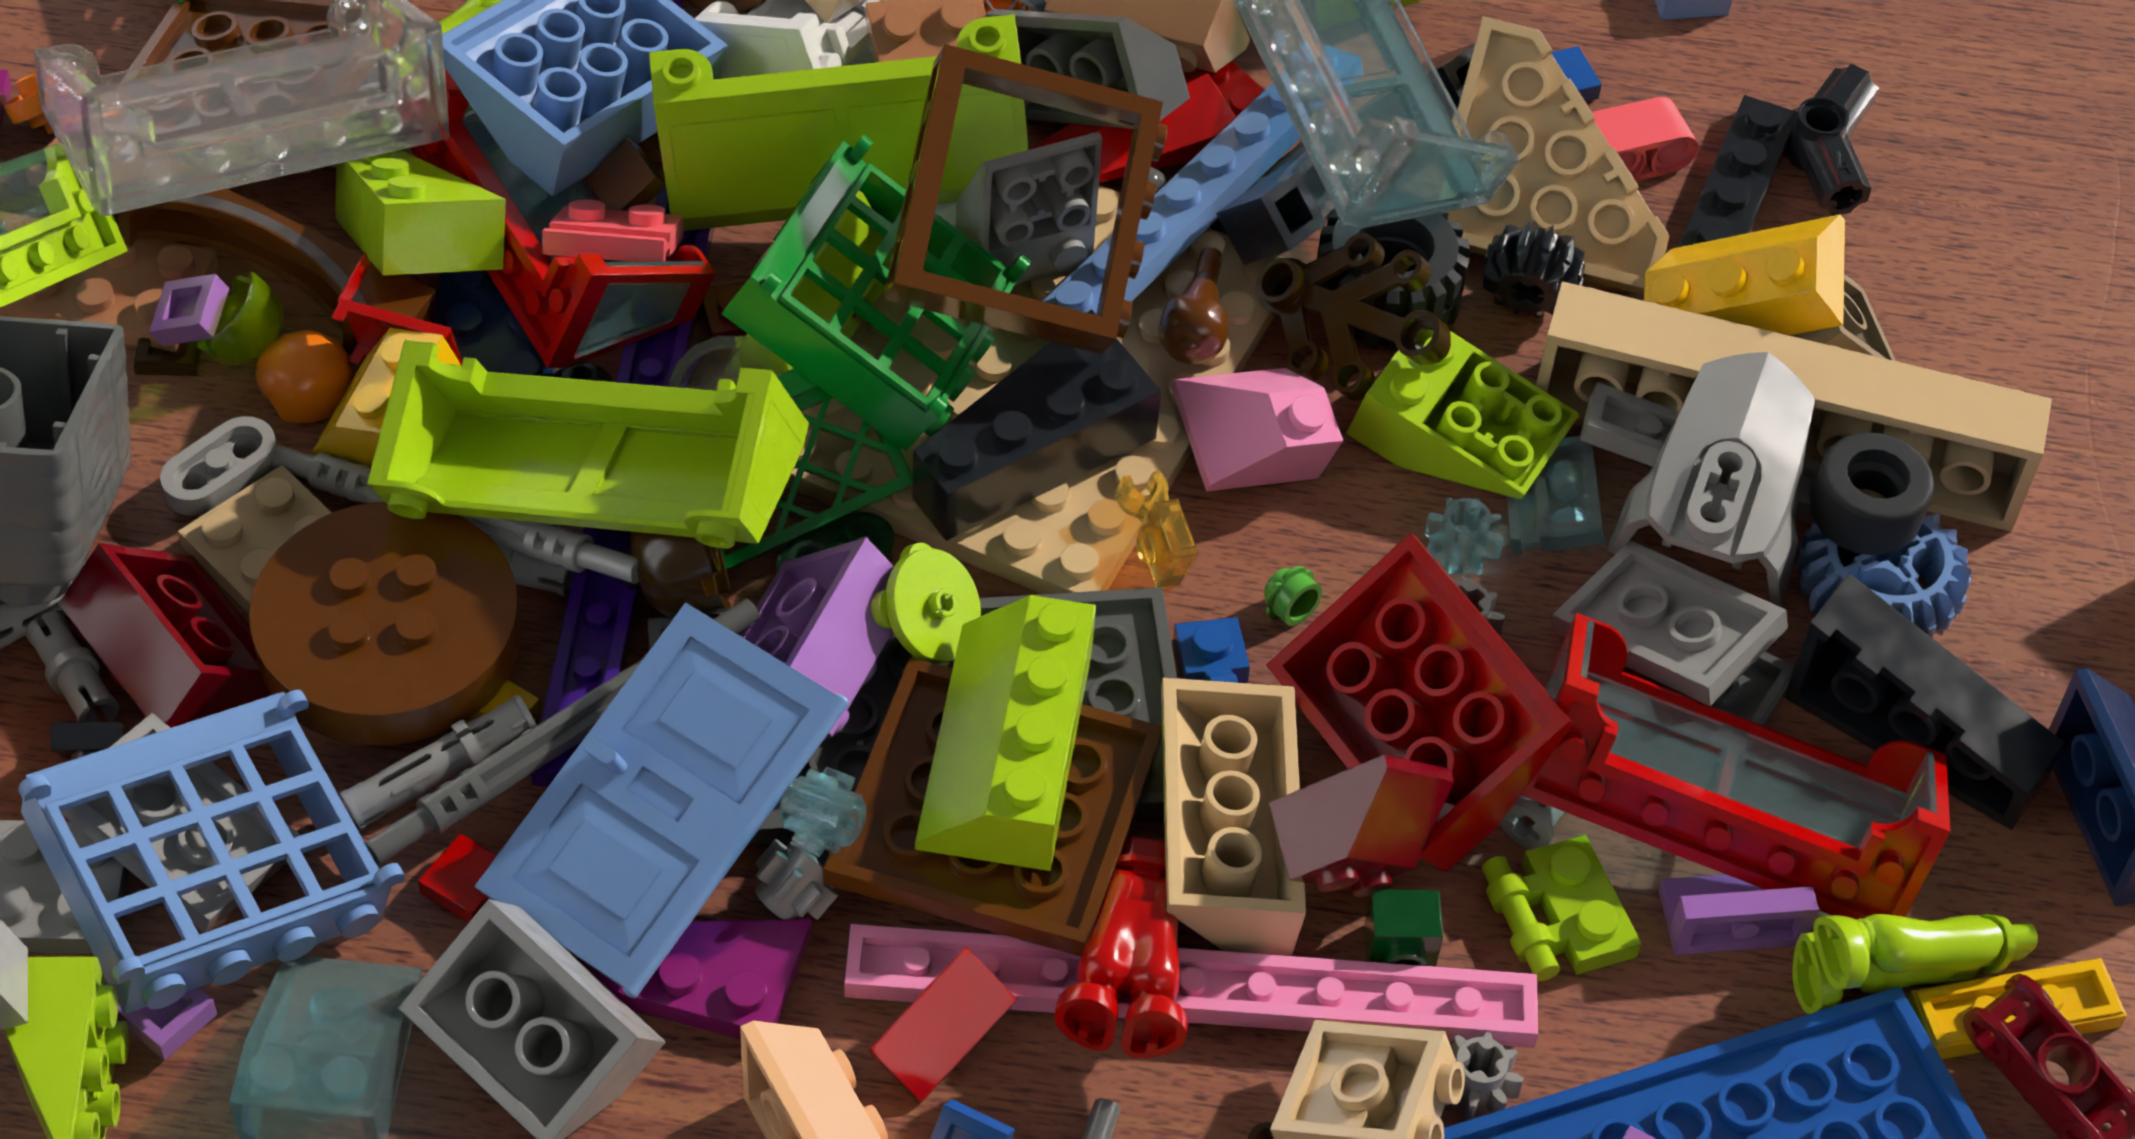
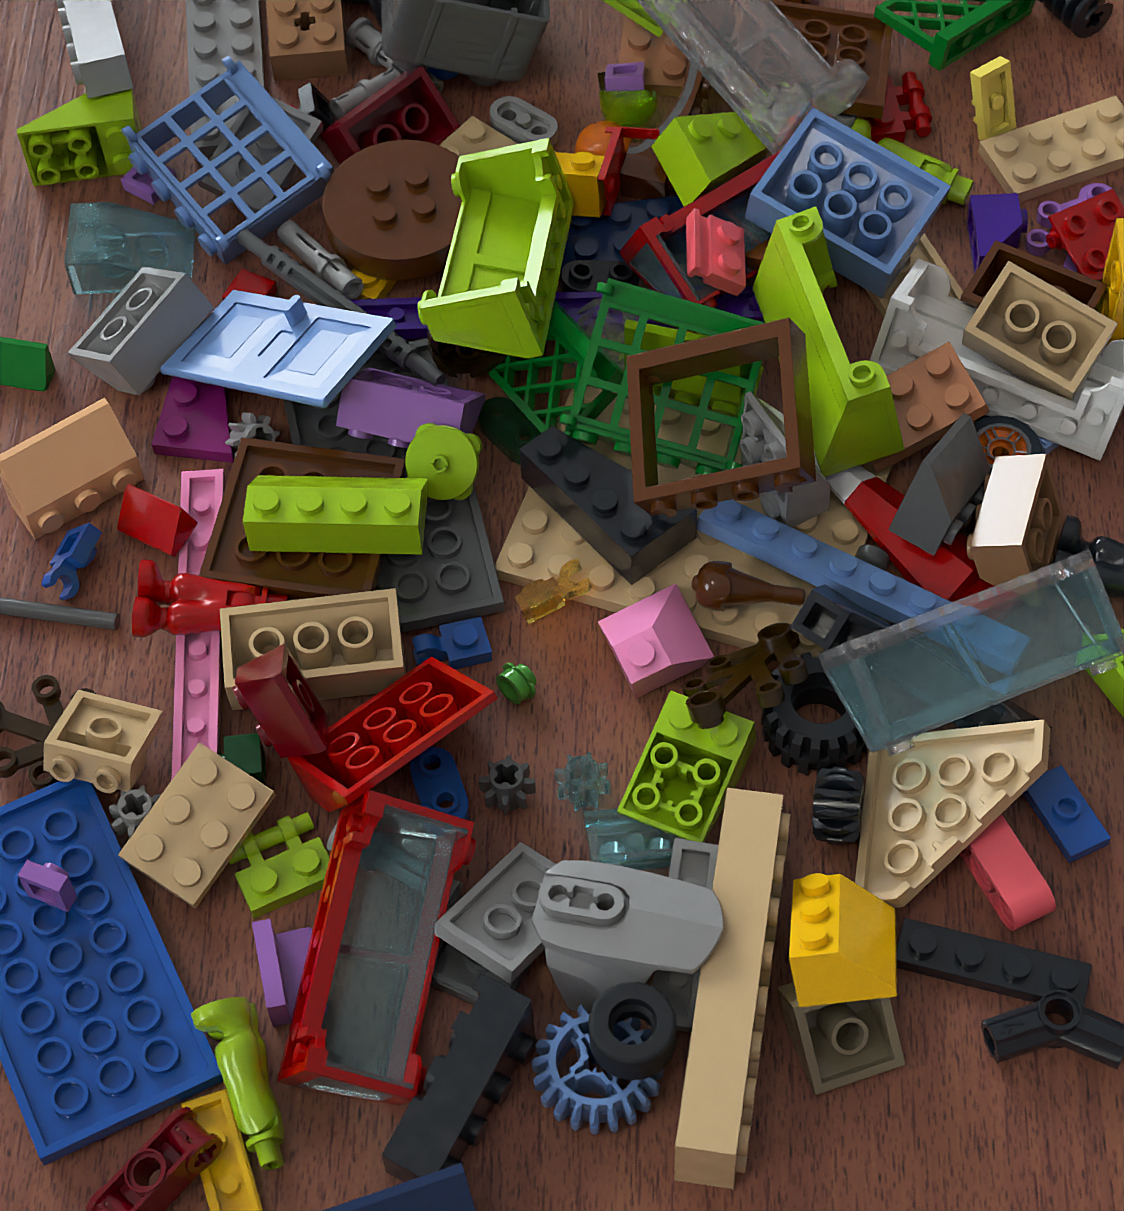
camera: 90 degrees right, 5 degrees up
(823, 811) = (264, 419): clear light blue gear -> none
(1520, 981) = (197, 825): none -> tan plate

